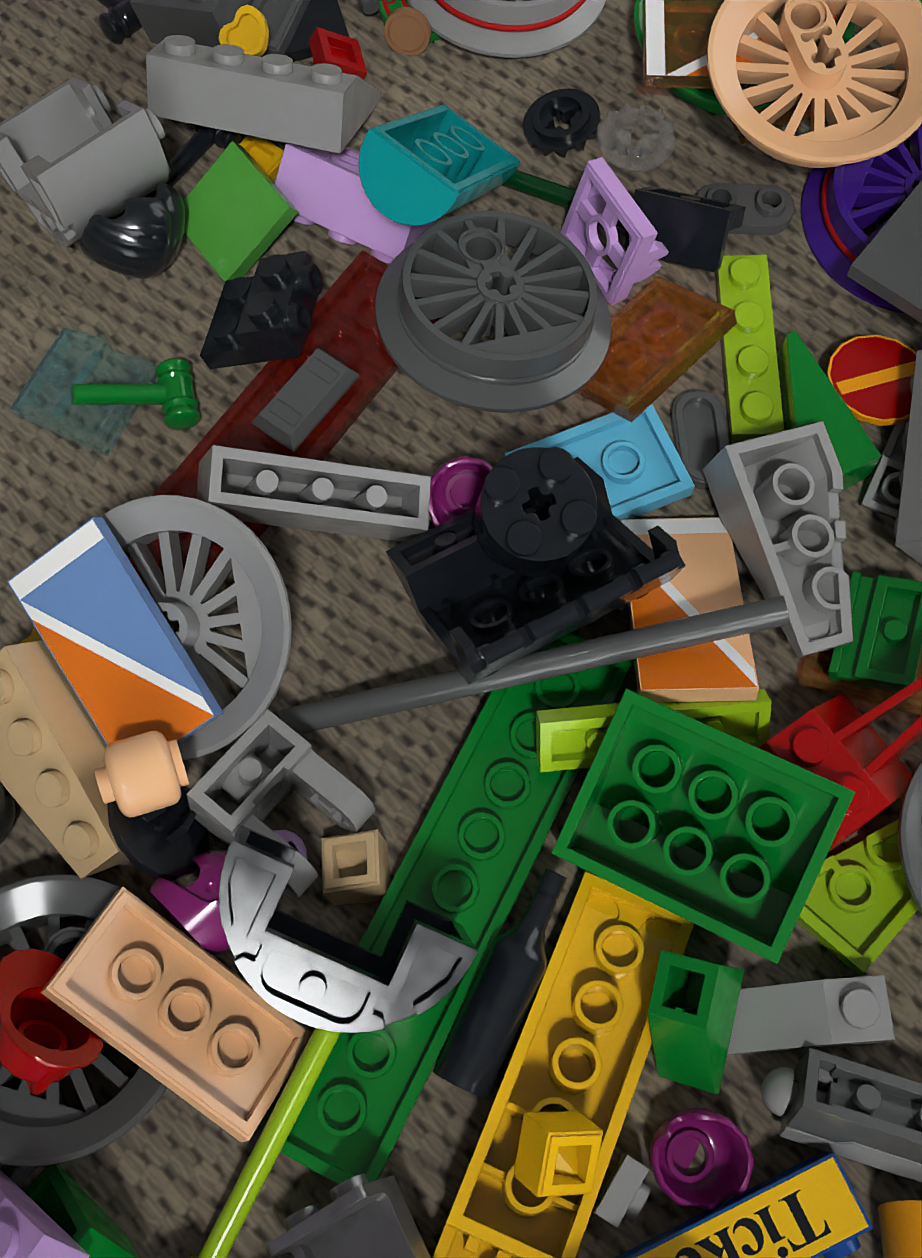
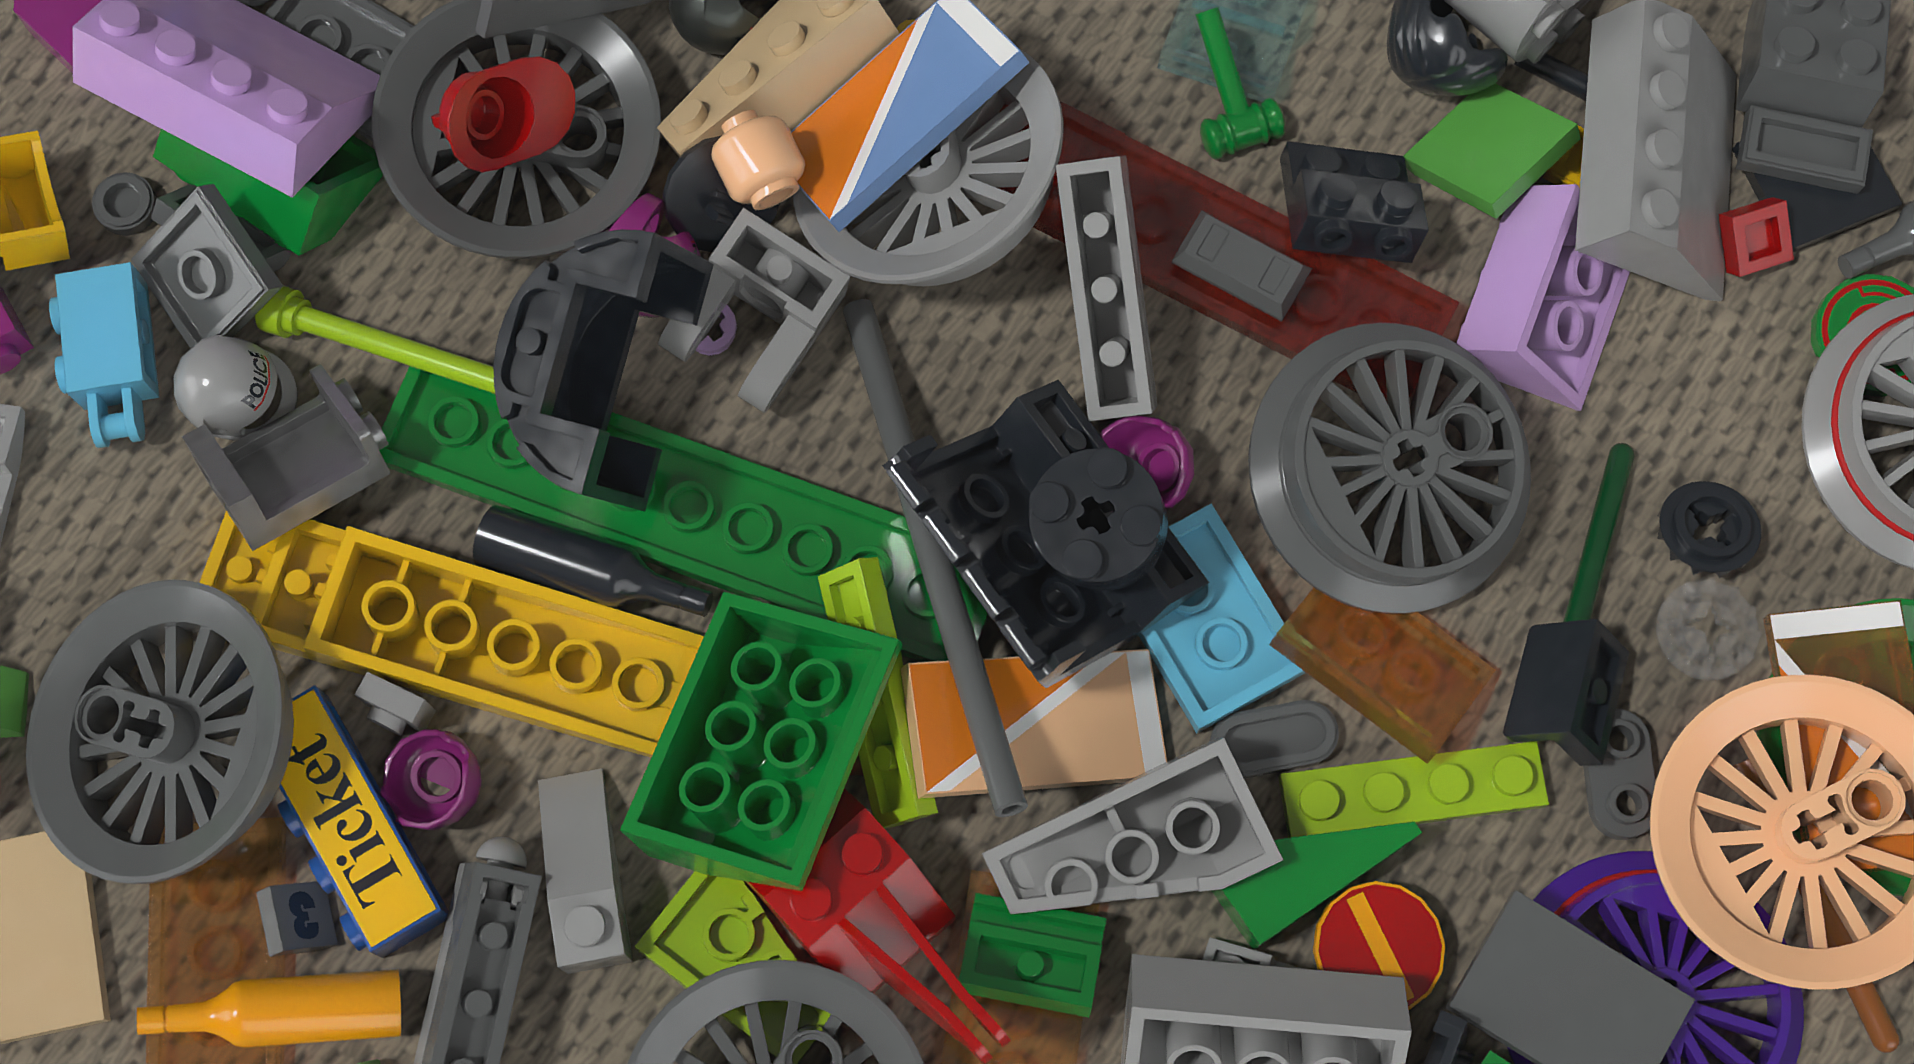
camera: 80 degrees right, 5 degrees up
(179, 1014) = (537, 200): light nougat tile -> none
(247, 31) = (1747, 116): yellow piece -> none
(355, 867) = (704, 403): tan slope -> none
(407, 31) = (1814, 317): medium nougat piece -> none
(430, 165) = (1561, 357): teal brick -> none
(558, 1153) = (417, 625): yellow slope -> none
(603, 192) = (1529, 590): lavender piece -> none
(693, 1018) = (573, 759): green slope -> none

